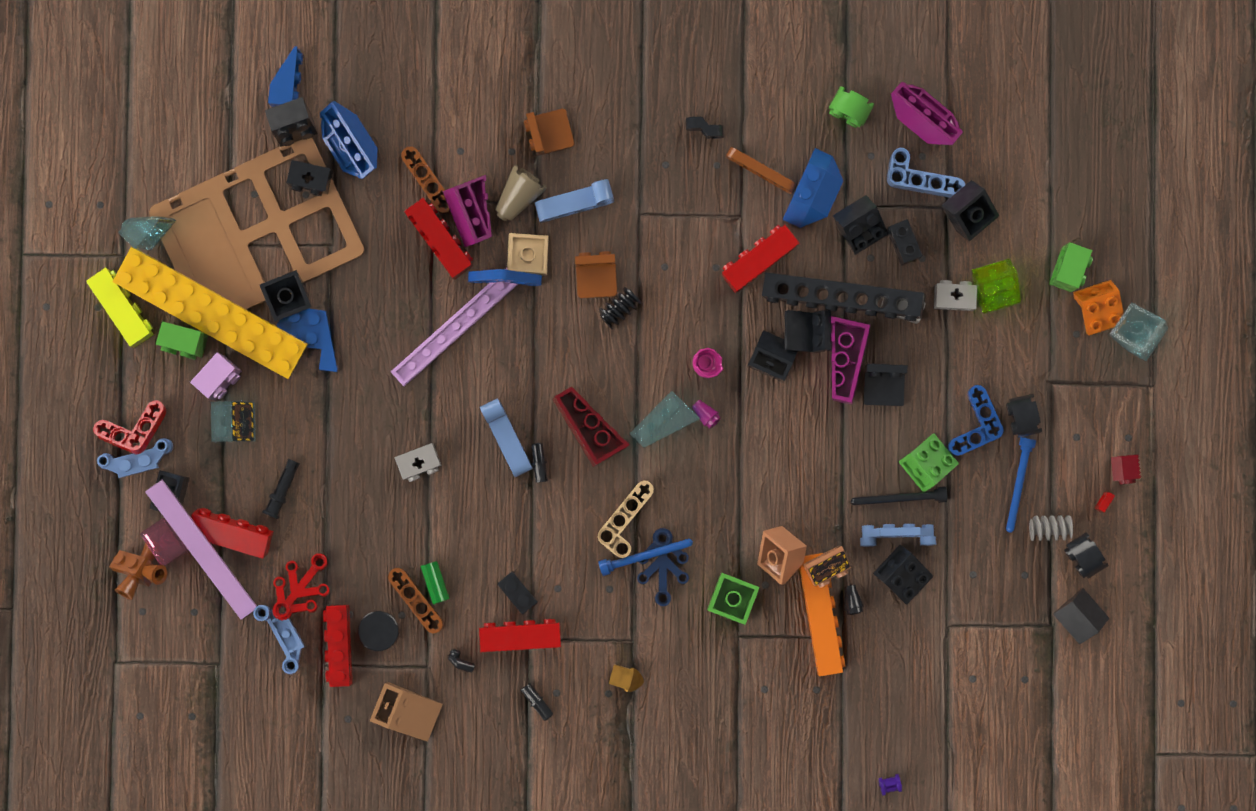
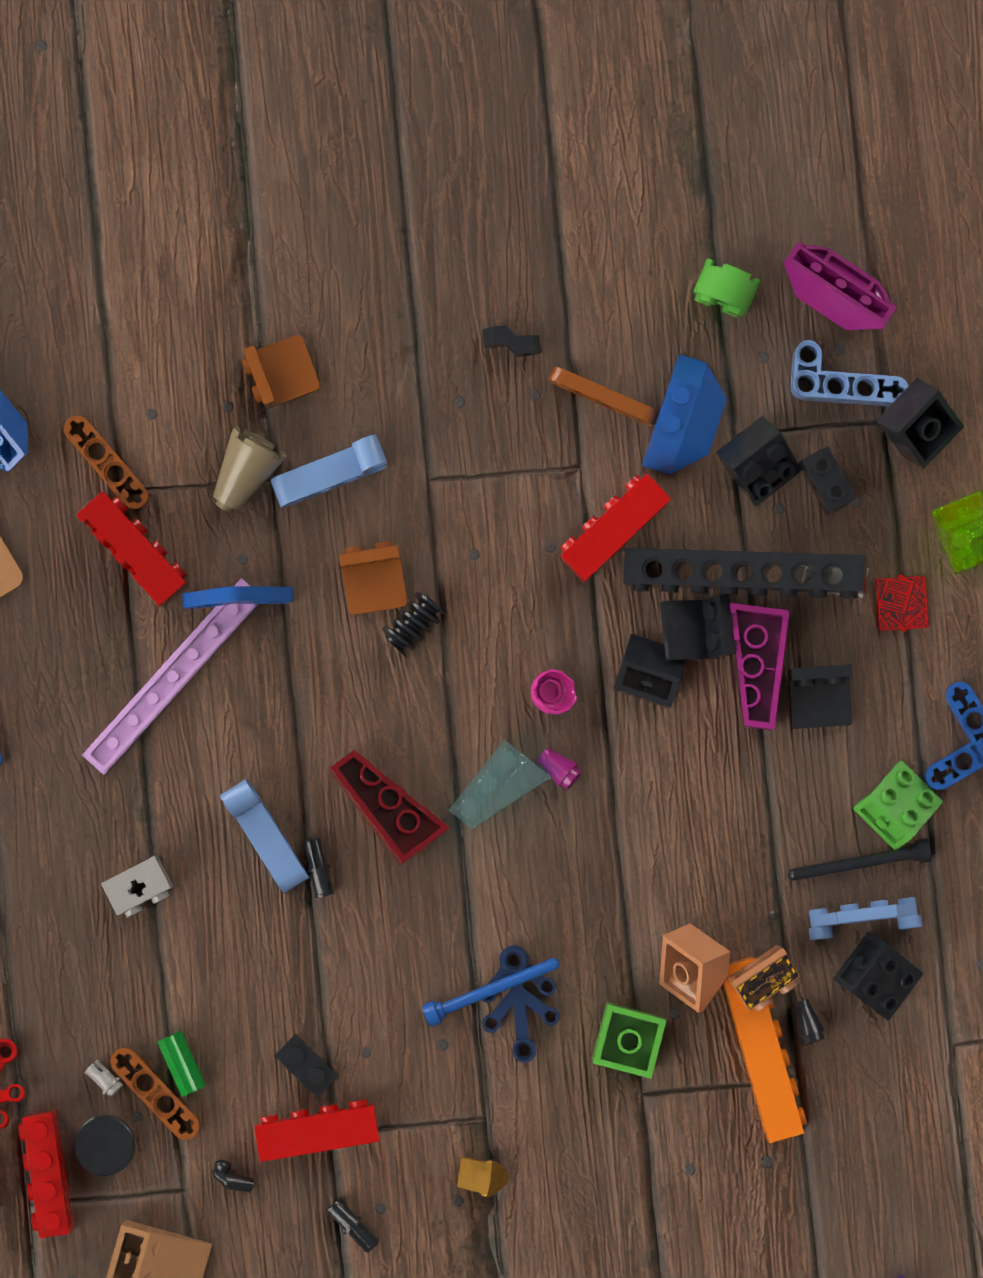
camera: 10 degrees left, 0 degrees up
(382, 586) = (104, 1078): none -> light grey pin
(469, 210) = (175, 502): magenta wedge -> none
(528, 253) = (268, 557): tan plate -> none
(628, 515) = (459, 932): tan beam -> none
(944, 300) = (895, 561): light grey brick -> none
(945, 329) = (902, 603): none -> red piece

